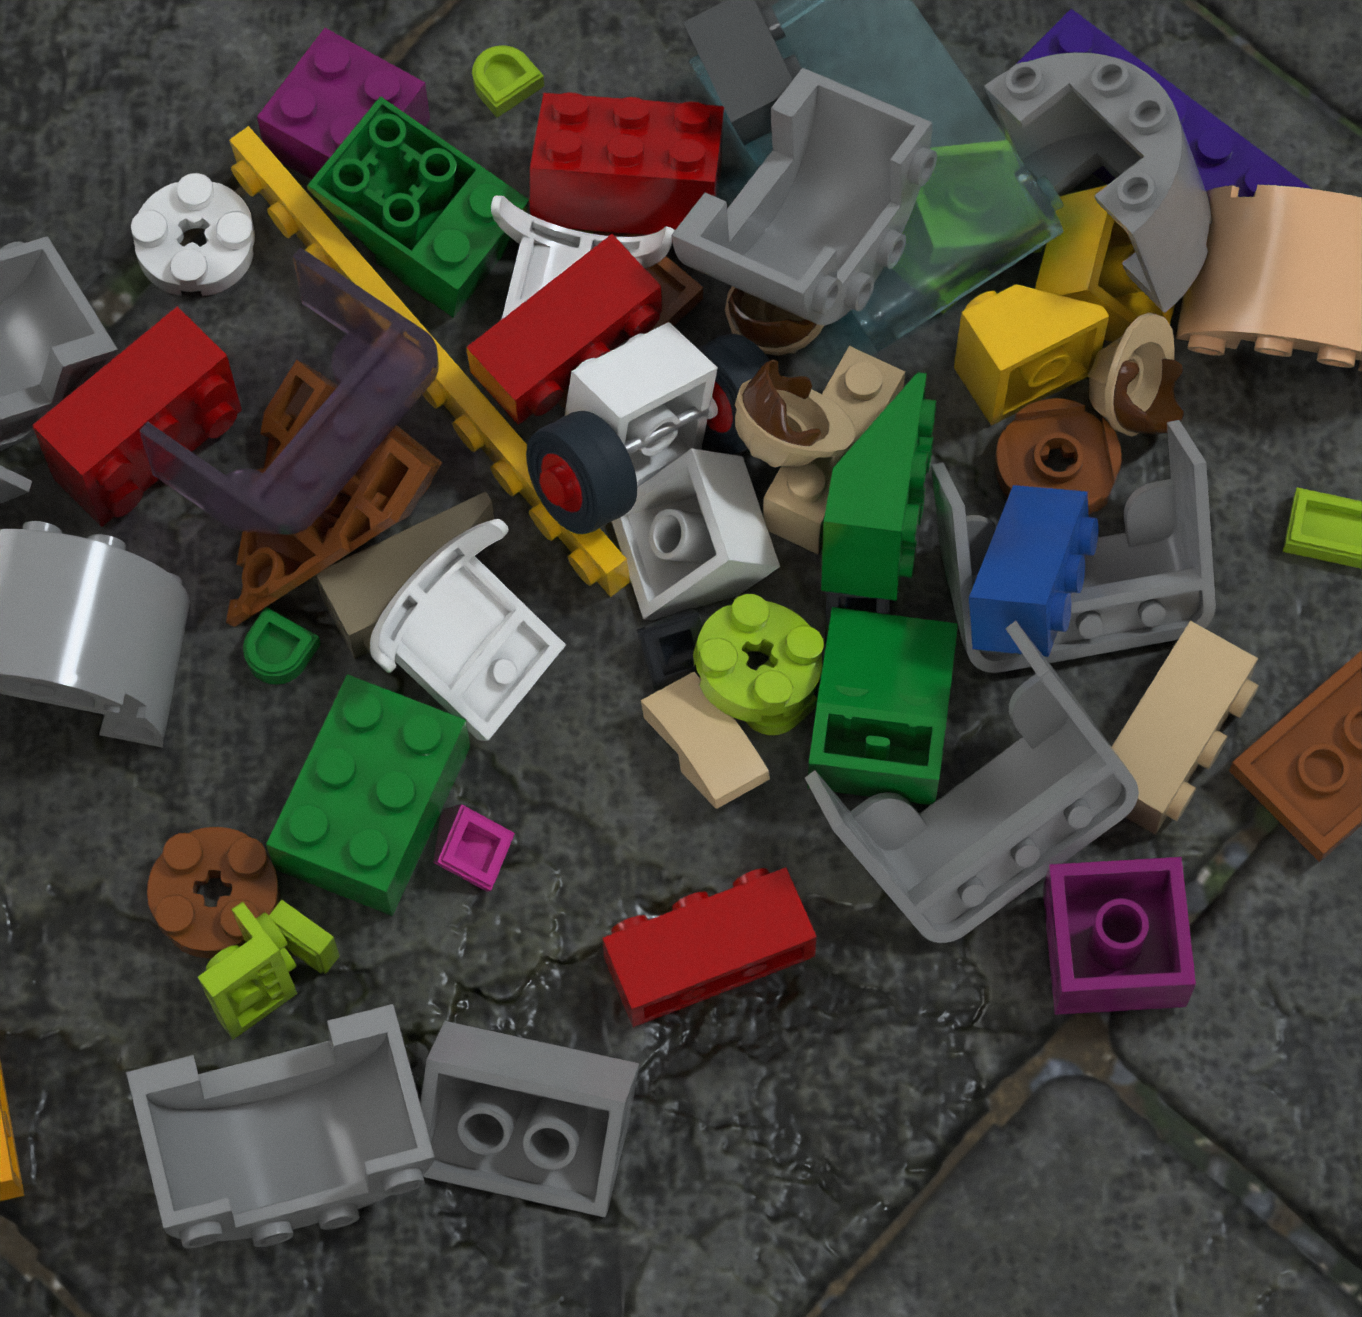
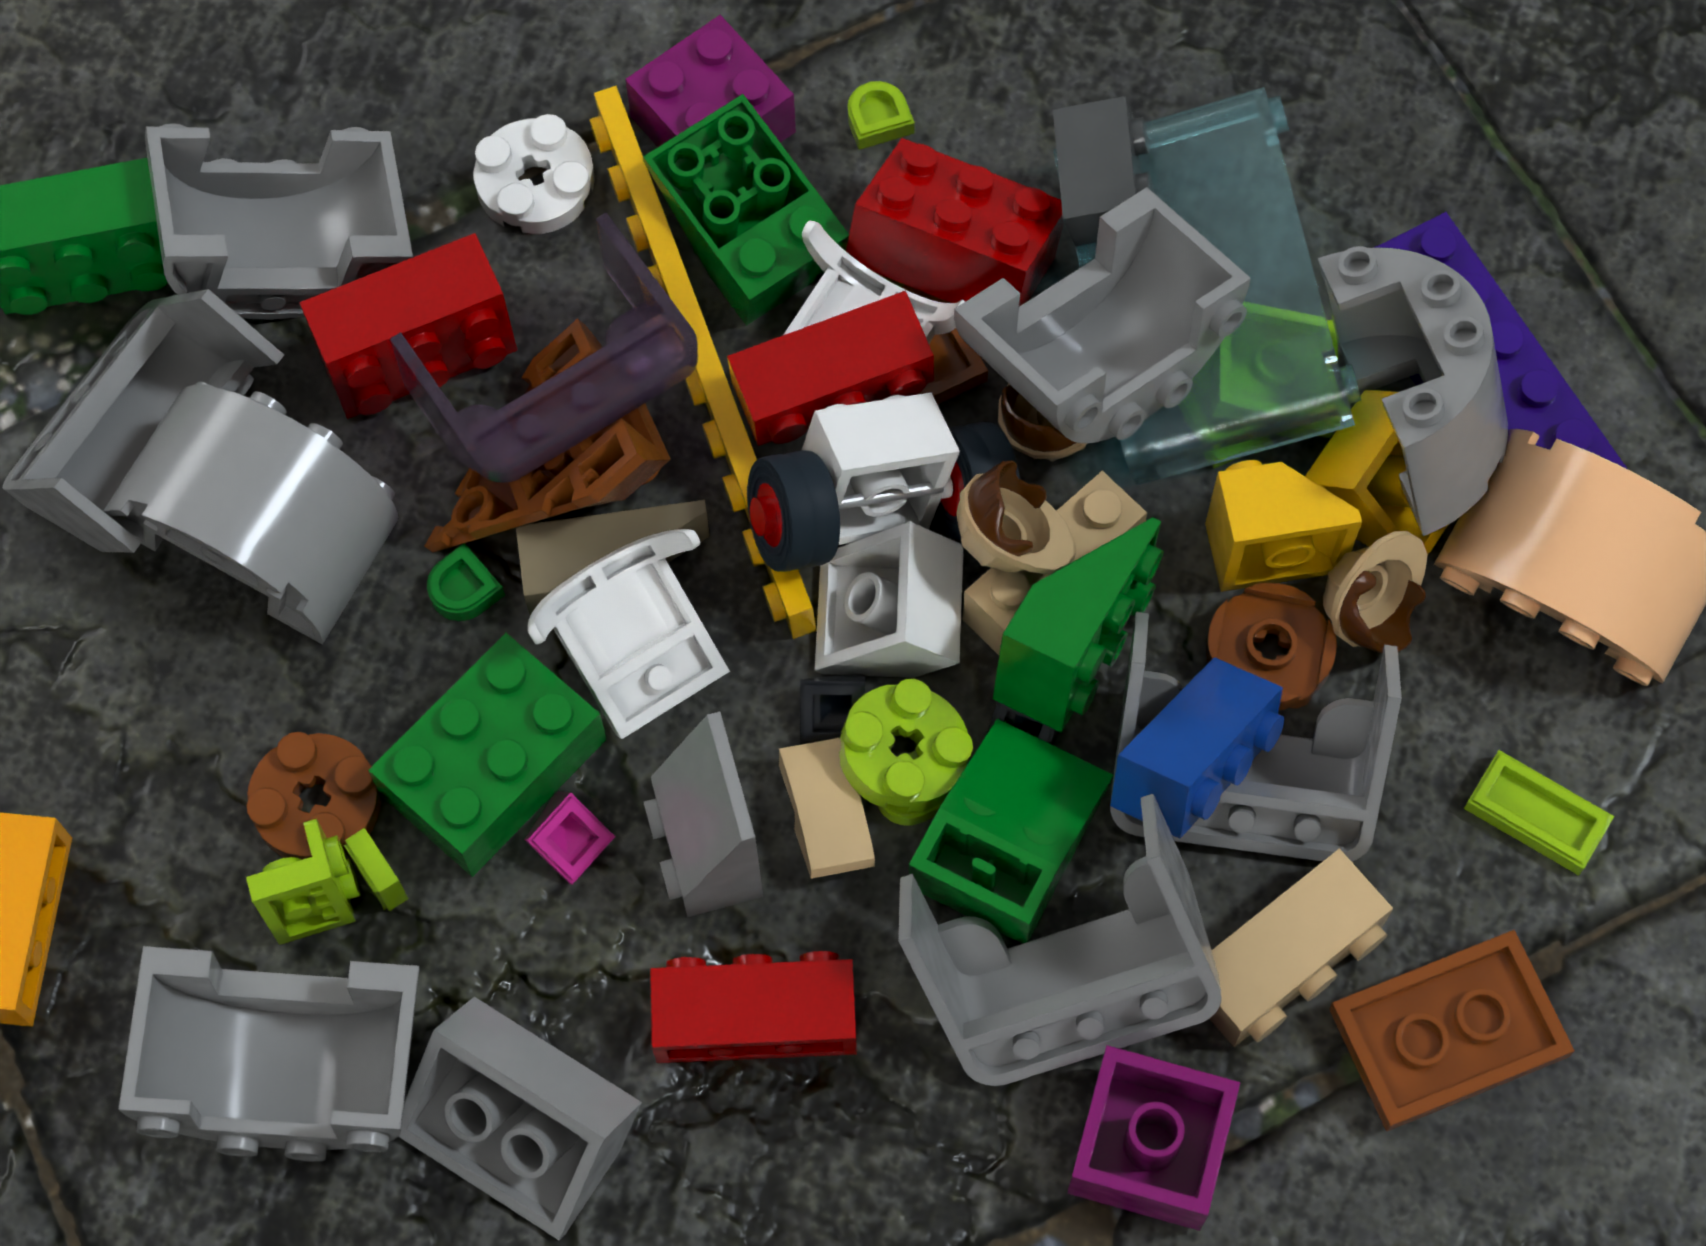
camera: 20 degrees right, 0 degrees up
(605, 785) = (705, 823): none -> light grey slope

